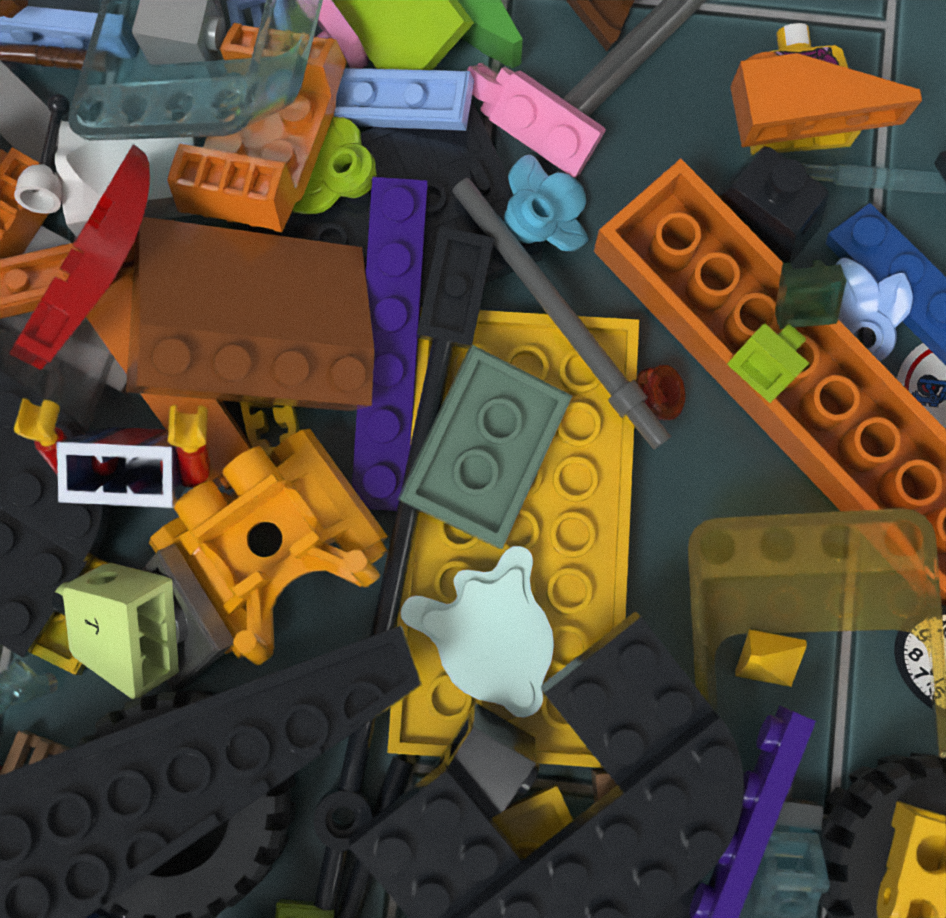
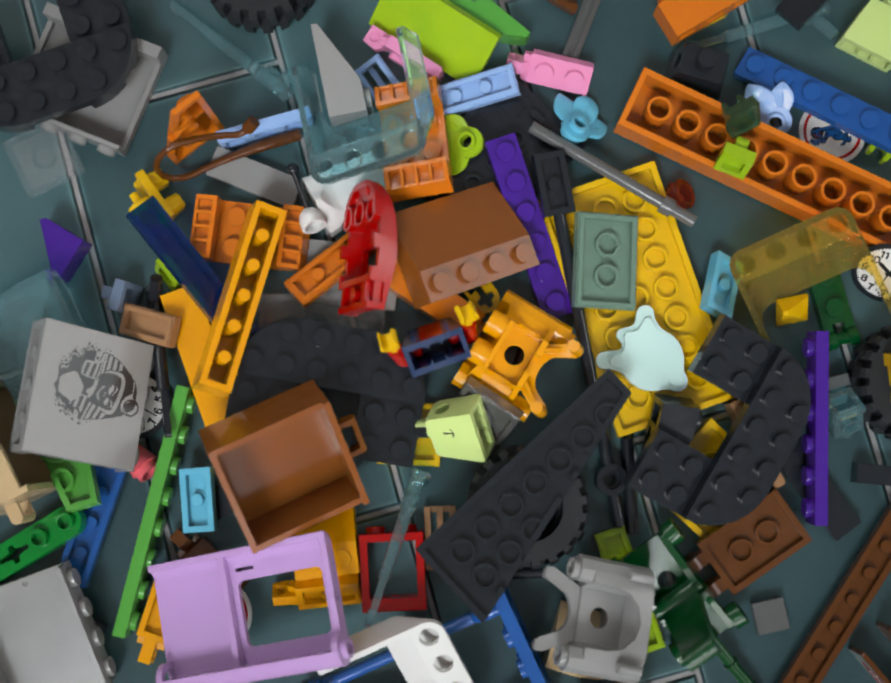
camera: 25 degrees left, 5 degrees up
(659, 571) = (719, 287): none -> medium azure plate
(841, 684) = (831, 308): none -> dark green plate

